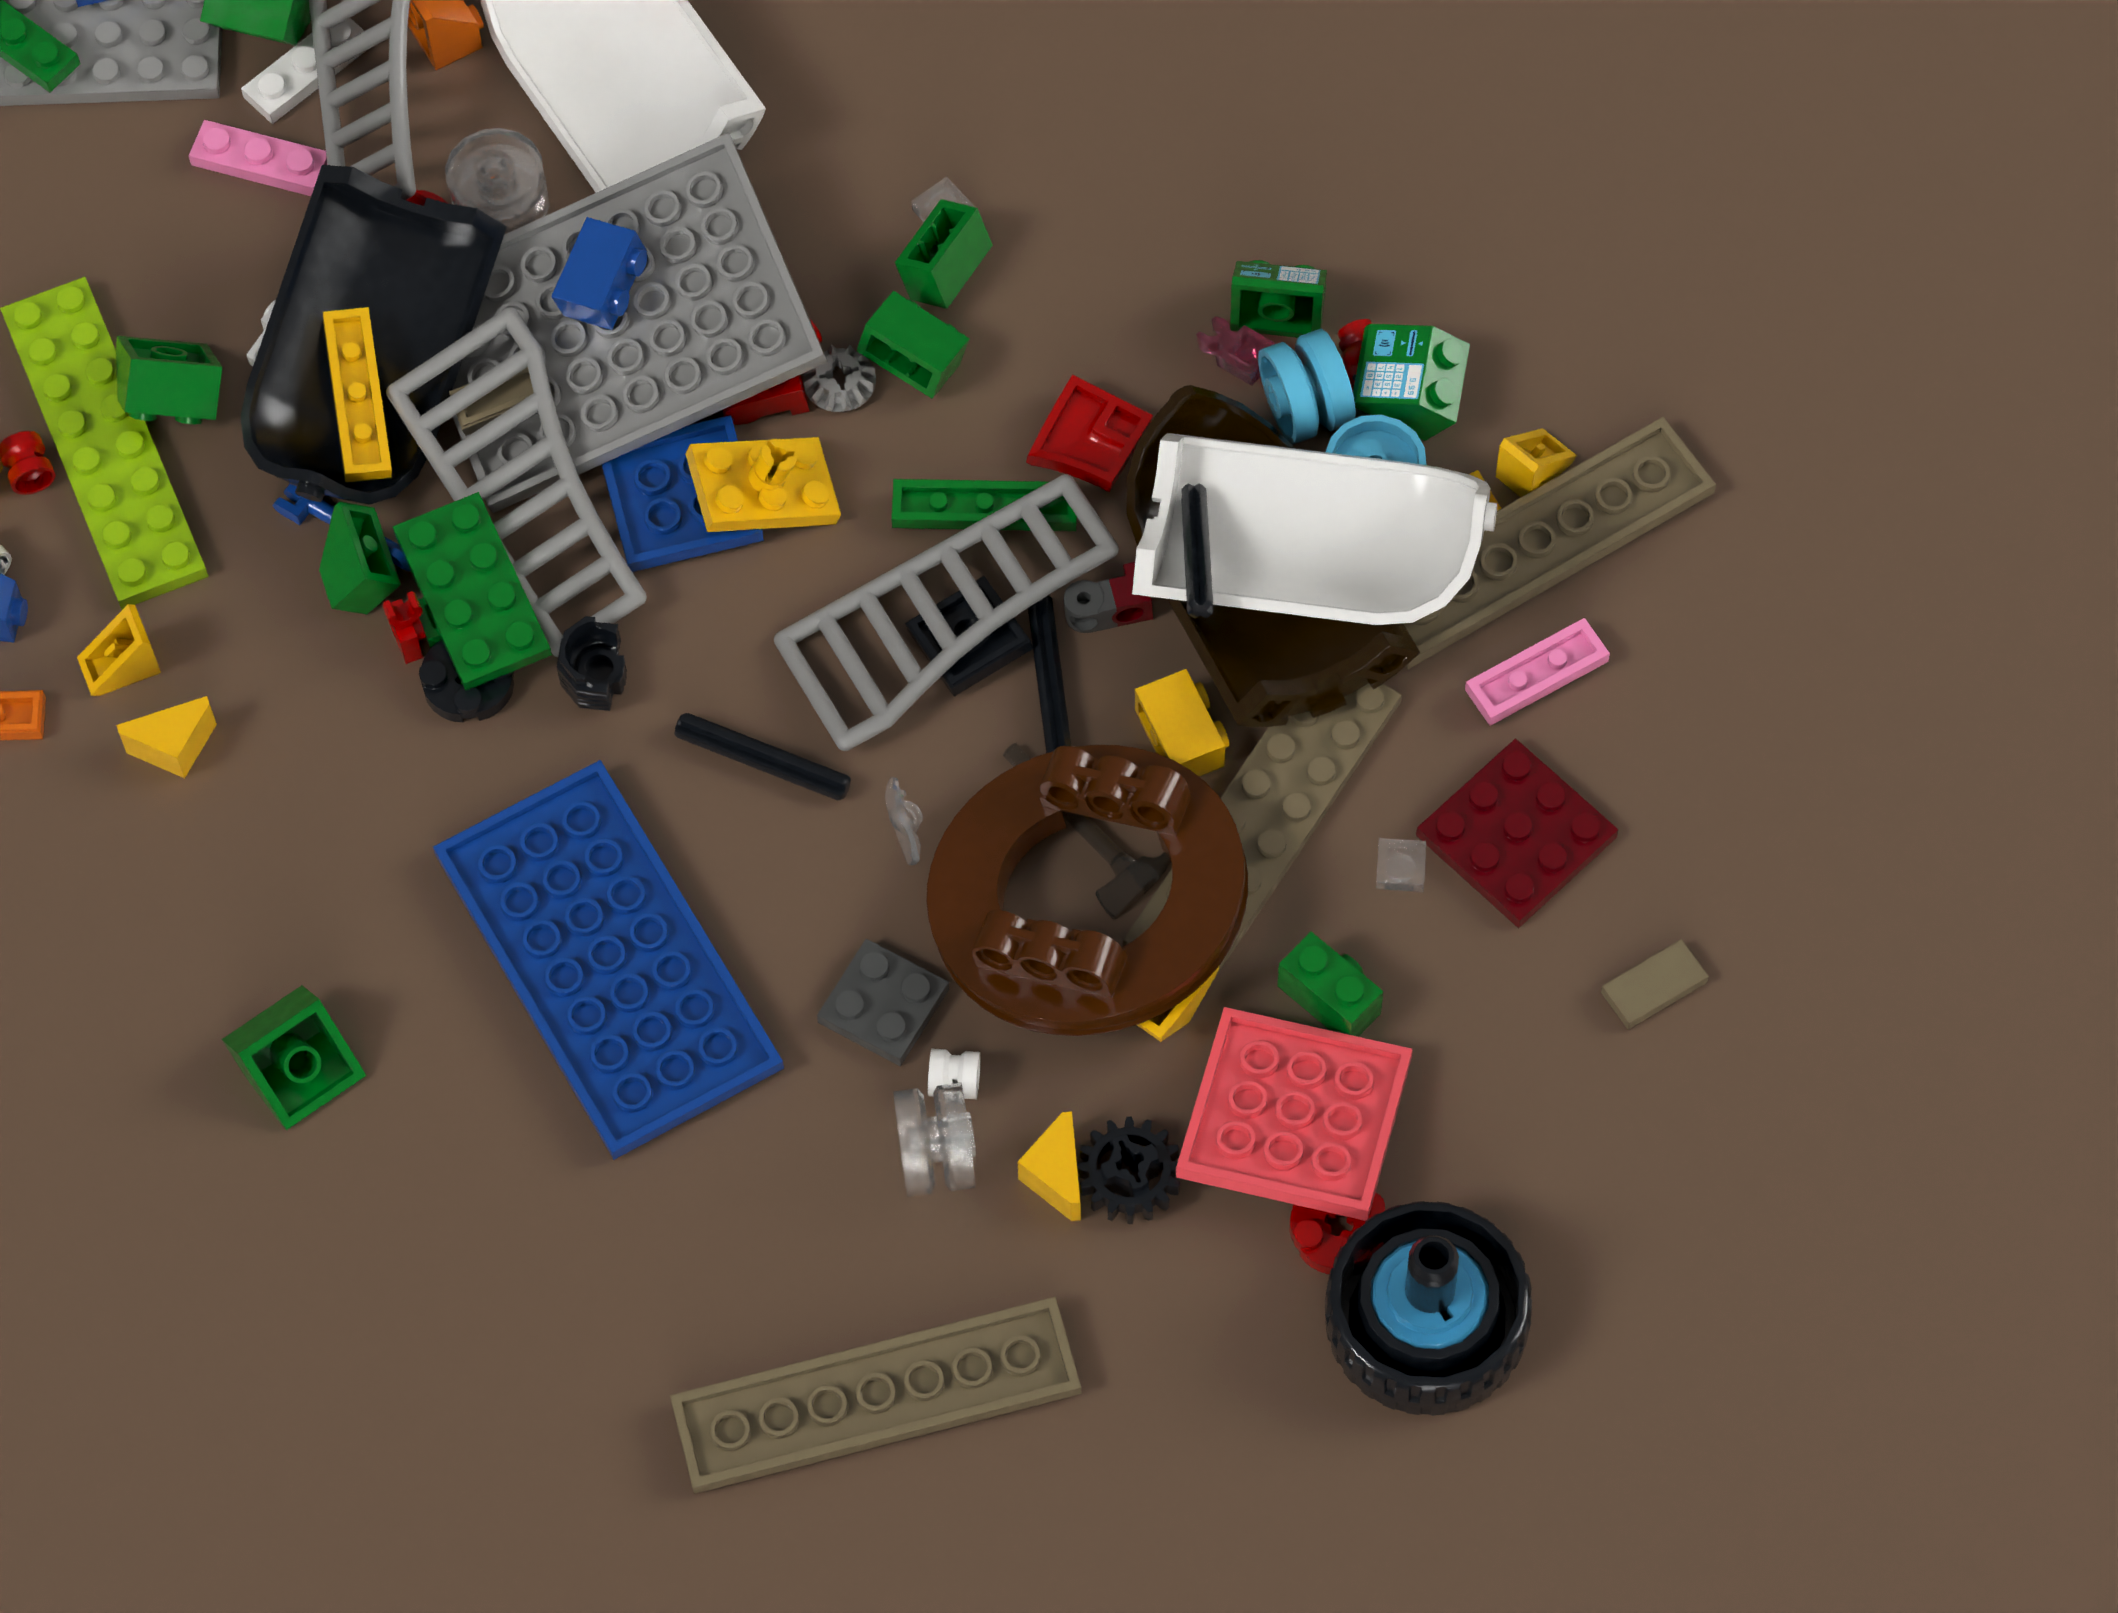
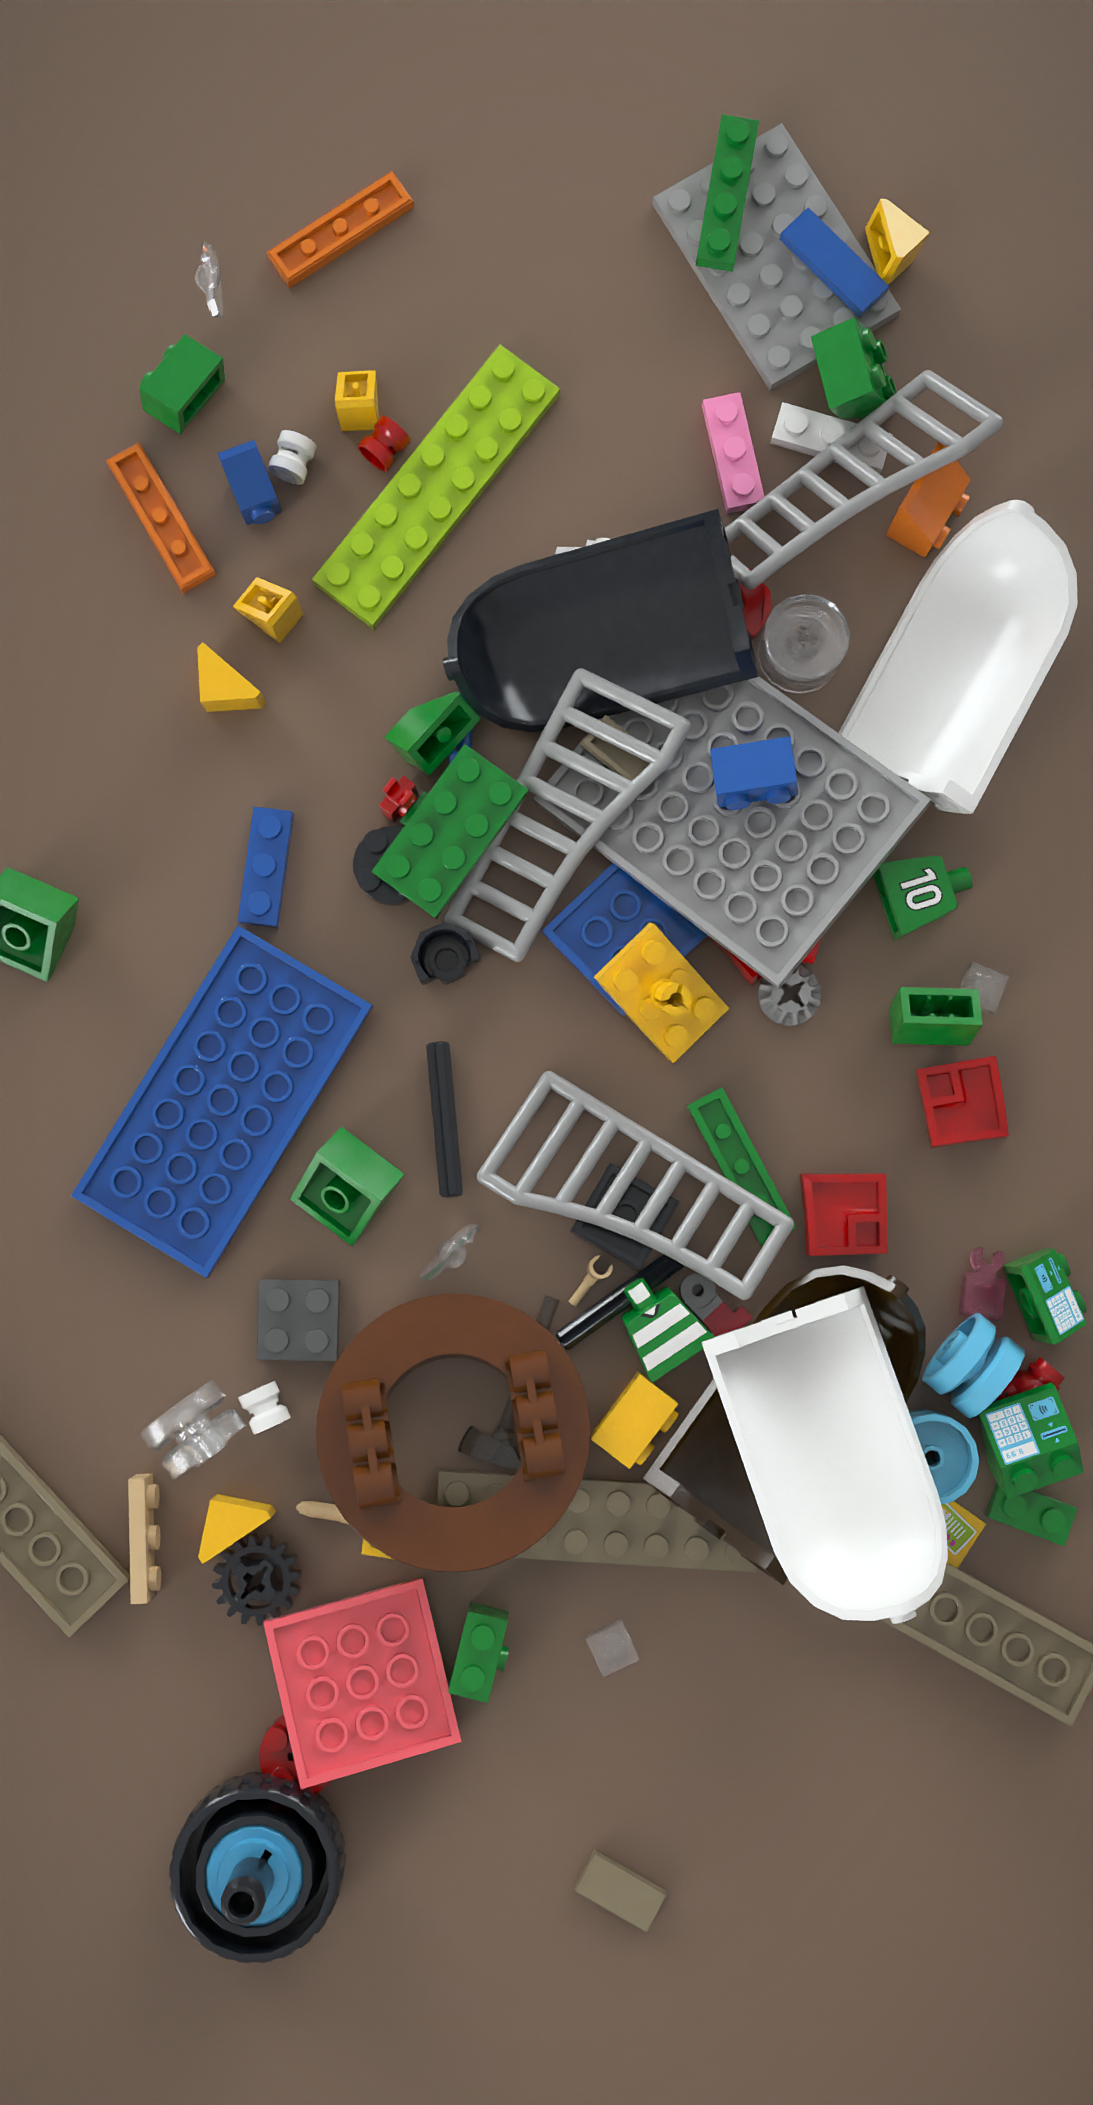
camera: 60 degrees right, 20 degrees up
(167, 379) = (504, 501): green slope -> none
(357, 394) = (560, 649): yellow plate -> none
(388, 798) = (265, 867): none -> blue plate
(773, 880) = (346, 1185): none -> green slope
(812, 211) = (918, 892): none -> green torso
(912, 344) = (844, 1037): green brick -> none
(1011, 698) = (589, 1281): none -> tan hand
(1019, 1262) = (143, 1538): none -> tan plate
(1044, 276) = (963, 1102): none -> red plate
(1102, 652) = (661, 1329): none -> torso
(1112, 1060) = (320, 1510): none -> tan piece
(1197, 551) = (764, 1373): black axle -> none
(1488, 422) = (1033, 1514): none -> green plate
(1517, 833) = (690, 1719): dark red plate -> none
(1531, 460) = (1013, 1570): yellow slope -> none
(1537, 671) = (832, 1667): bright pink plate -> none

